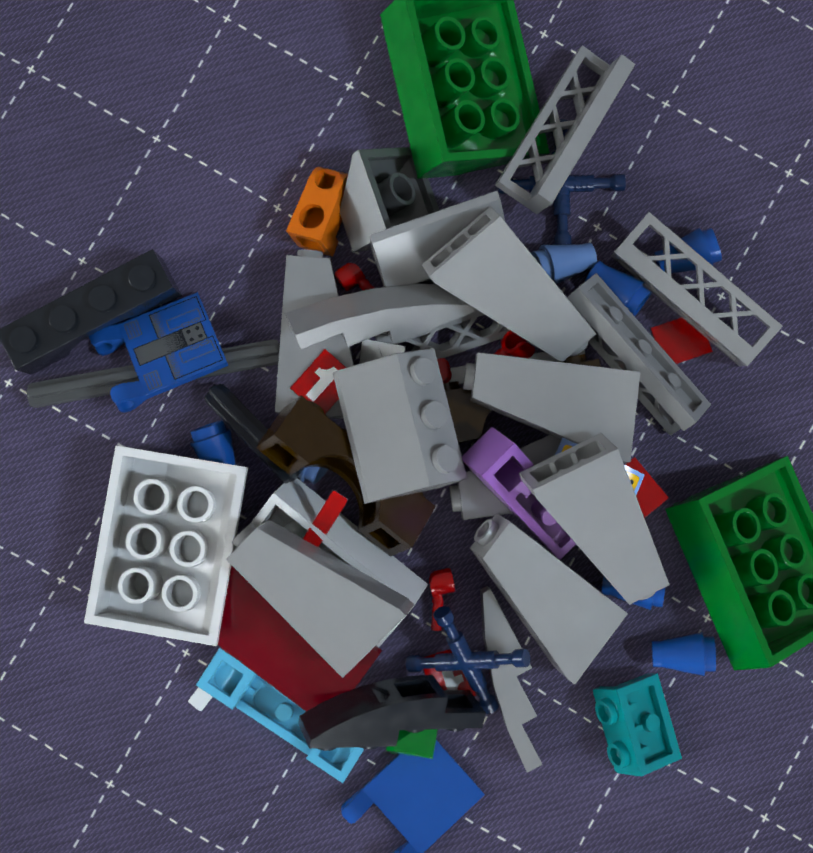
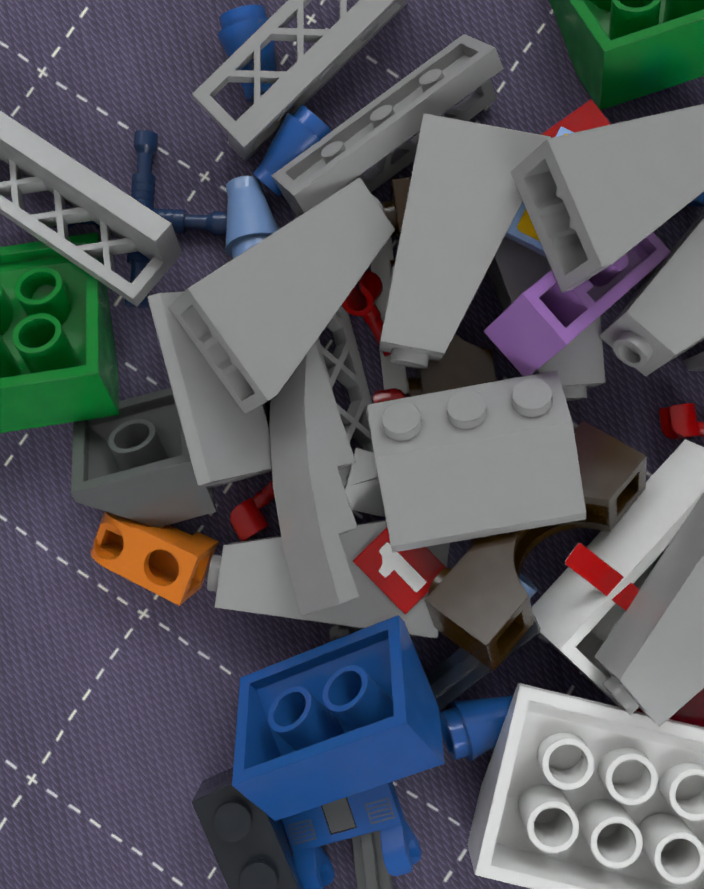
camera: 80 degrees left, 0 degrees up
(213, 343) = (335, 722): none -> blue slope
(681, 340) = (366, 75): red sticker -> none

